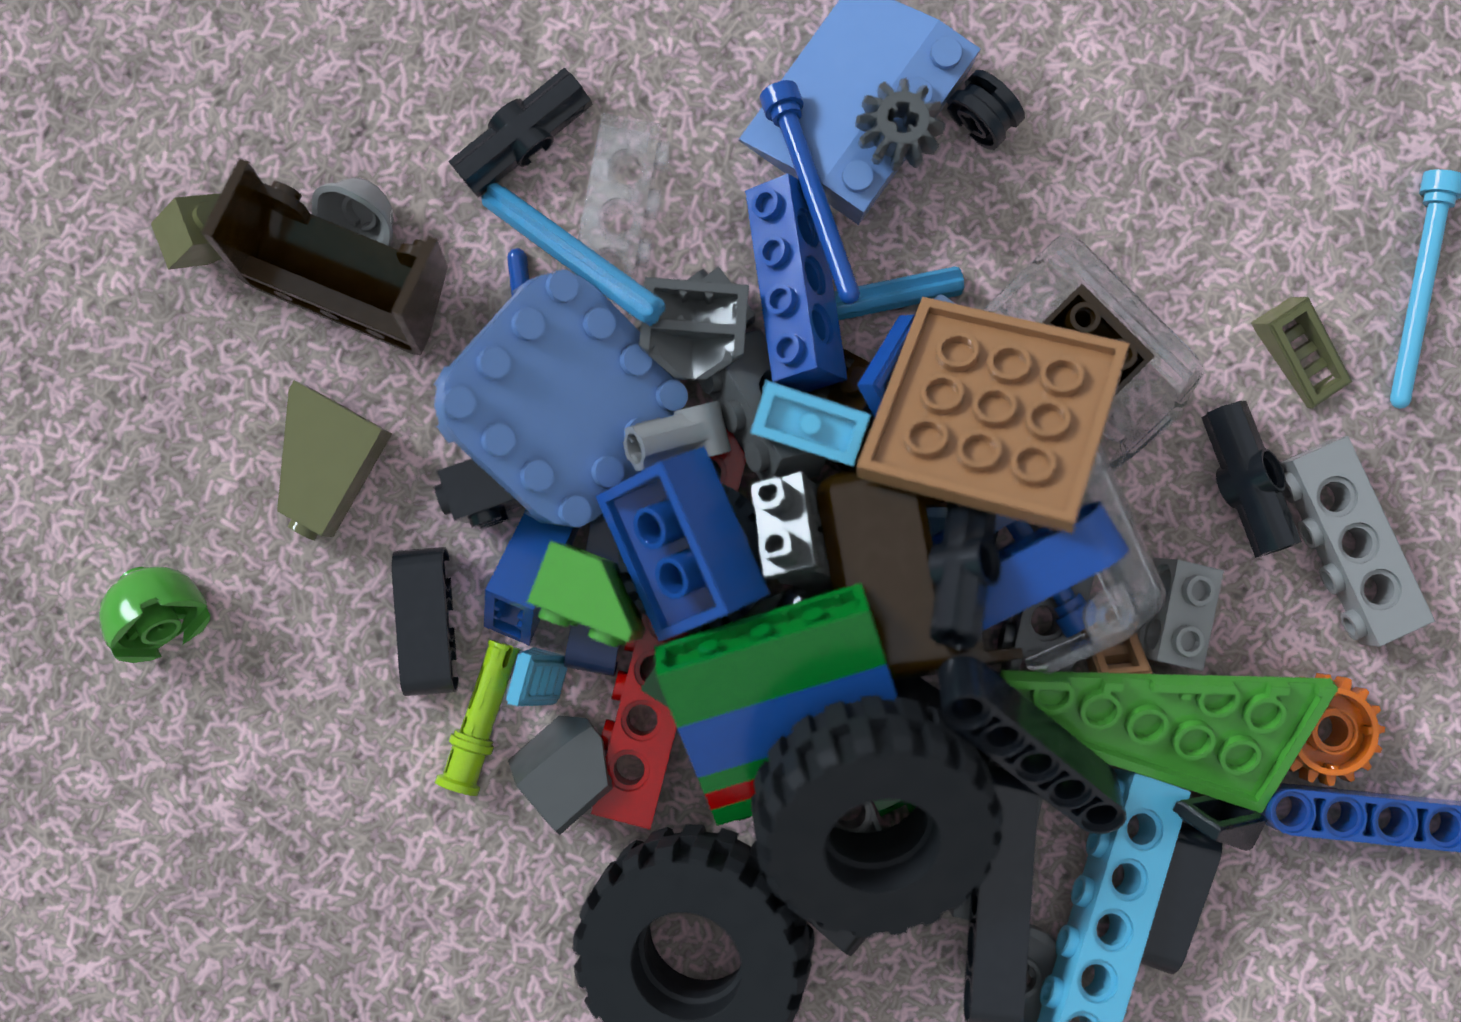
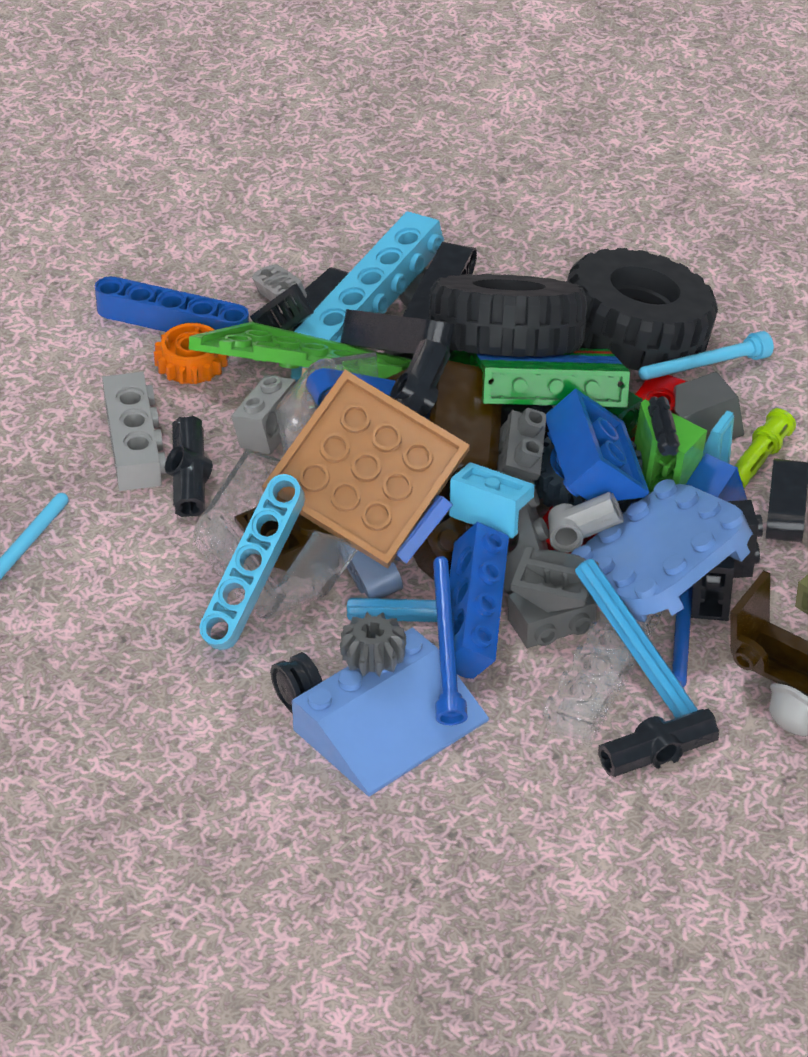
camera: 165 degrees left, 45 degrees down
(517, 949) = (755, 346): none -> medium azure piece
(586, 574) = (663, 426): none -> black axle
(1100, 249) = (255, 580): none -> medium azure beam
(1227, 897) = (275, 280): none -> light grey beam
(1278, 344) = (121, 544): olive slope -> none

